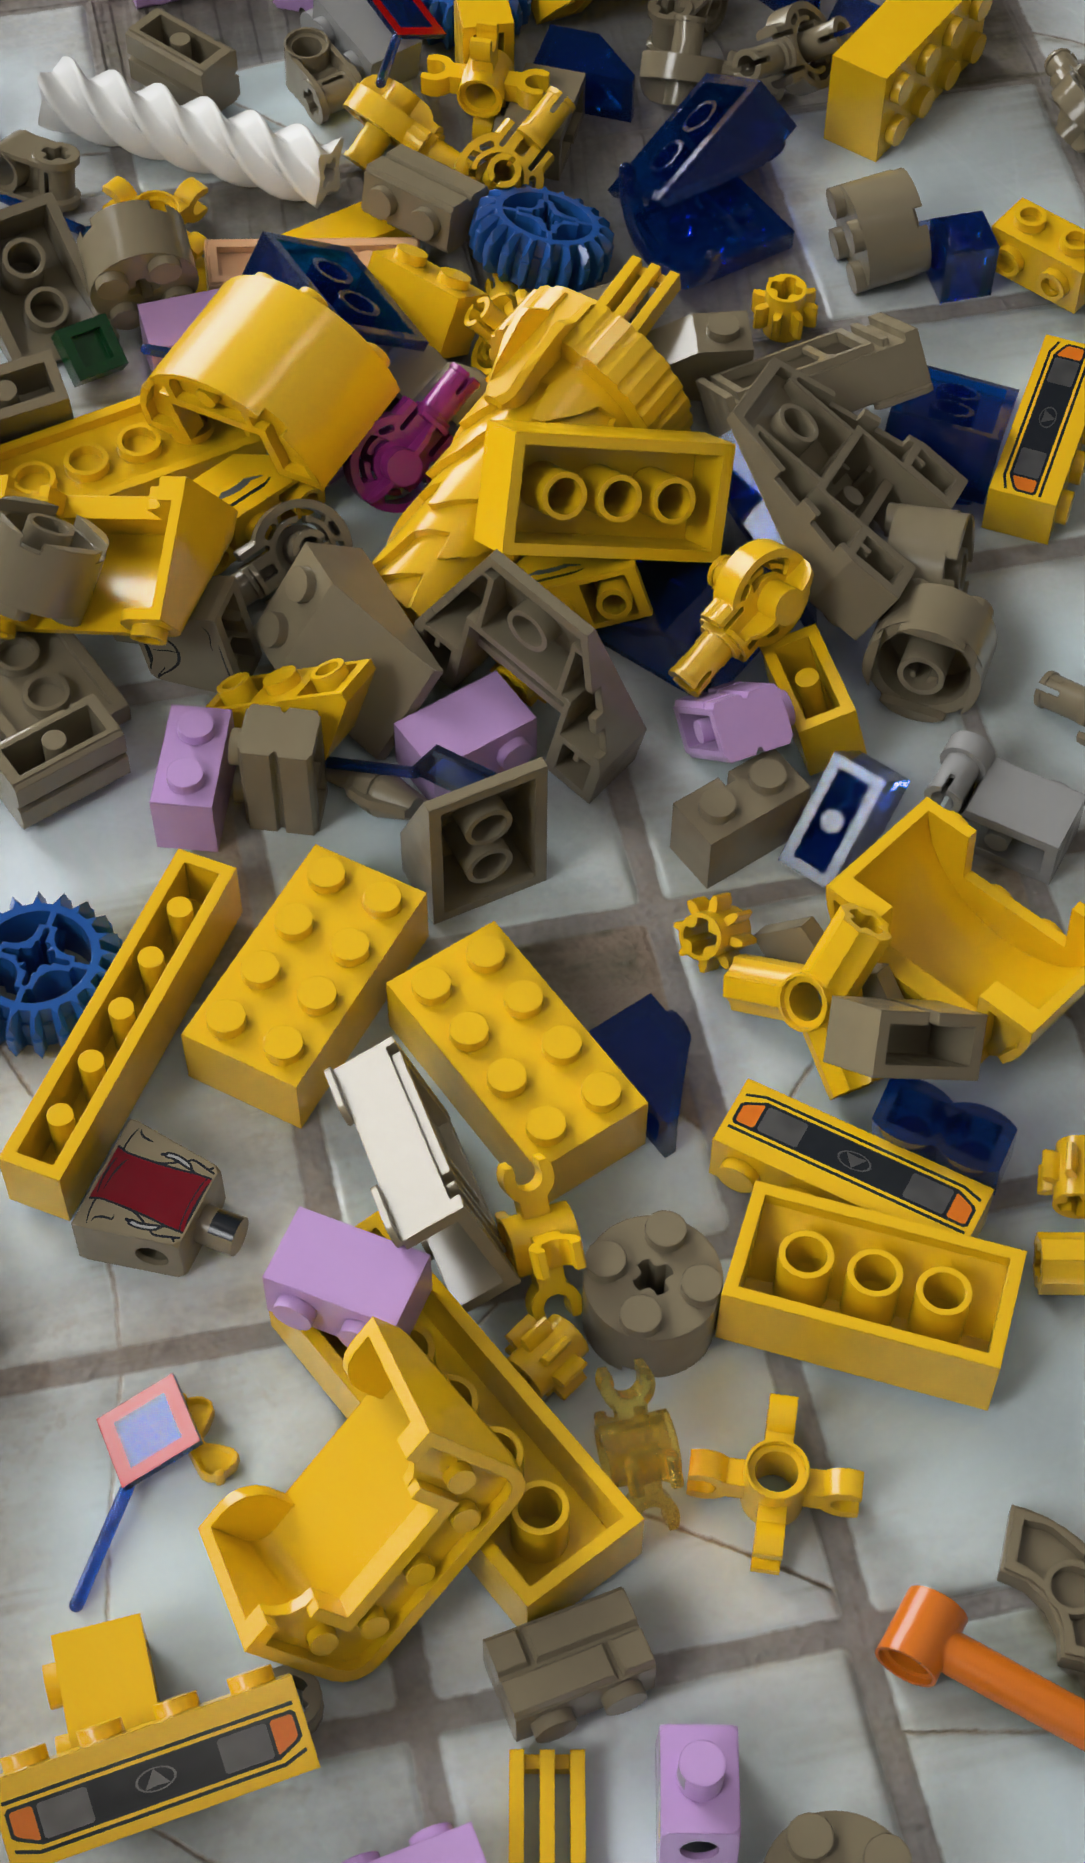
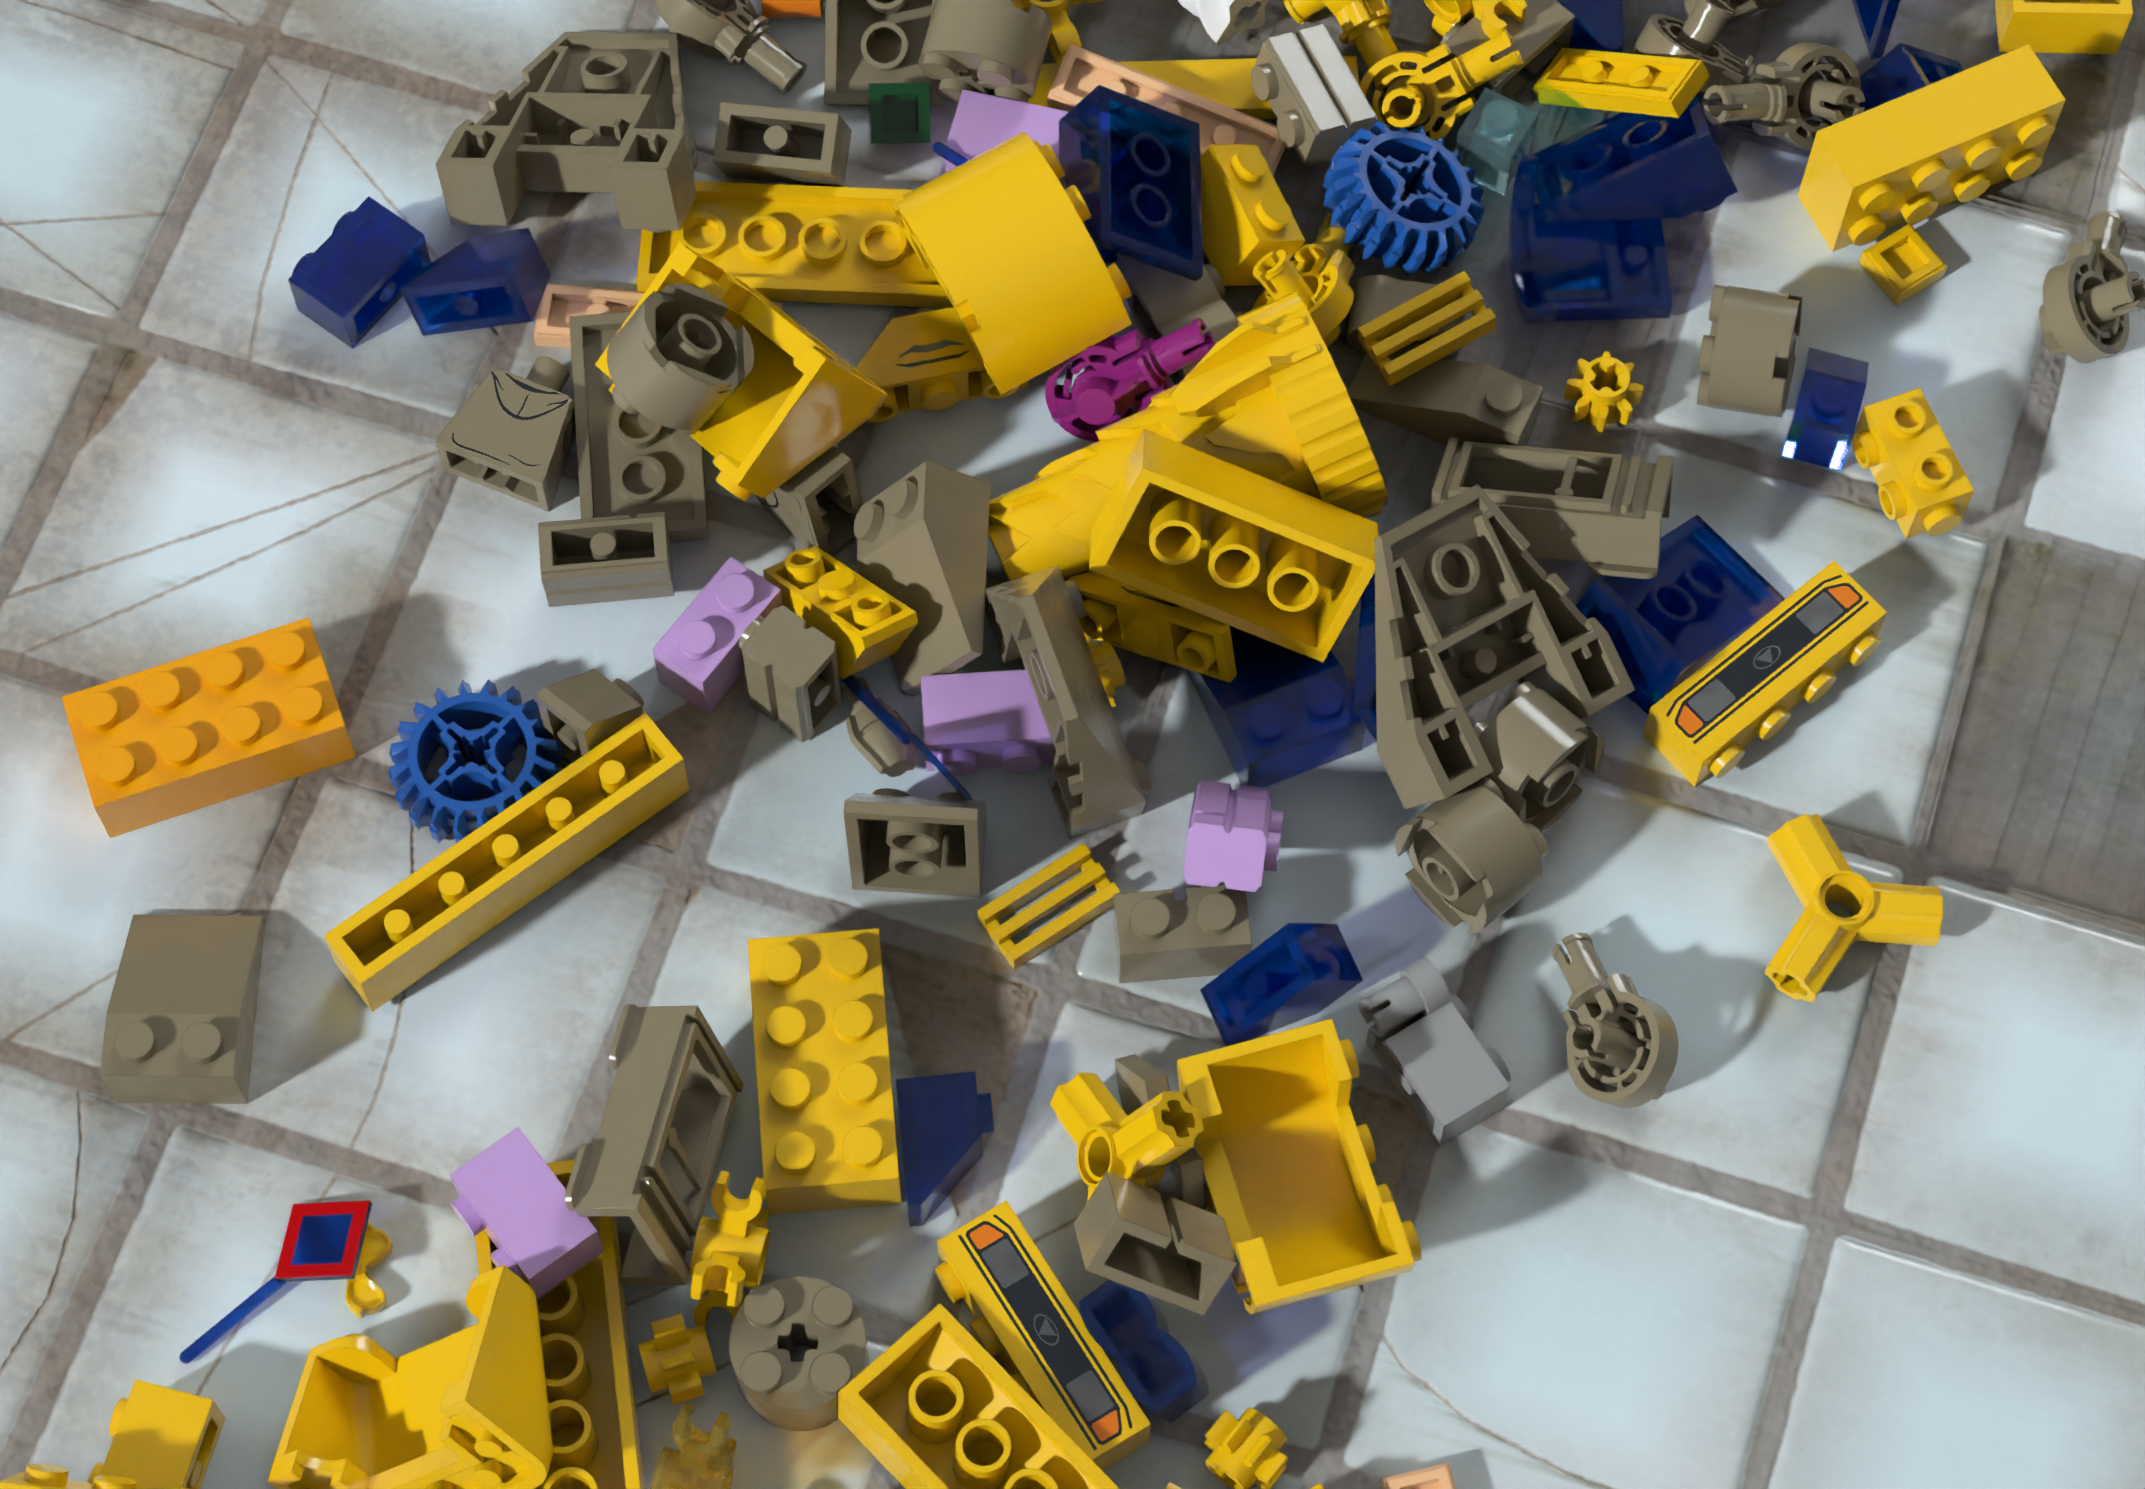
camera: 30 degrees right, 10 degrees up
(120, 882) = (586, 711): none -> dark tan slope
(155, 1207) = (443, 1041): torso -> none
(283, 545) = (944, 438): dark tan pin -> none
(306, 985) = (694, 895): yellow brick -> none
(583, 171) = (1496, 138): none -> clear light blue brick
(628, 818) = (1034, 886): none -> yellow tile
(652, 100) = (1621, 82): none -> yellow tile
(714, 931) = (1082, 1037): yellow gear -> none
(746, 609) = (1296, 734): yellow pin -> none
(821, 703) = (1325, 848): yellow brick -> none
(934, 146) = (1902, 264): none -> yellow tile

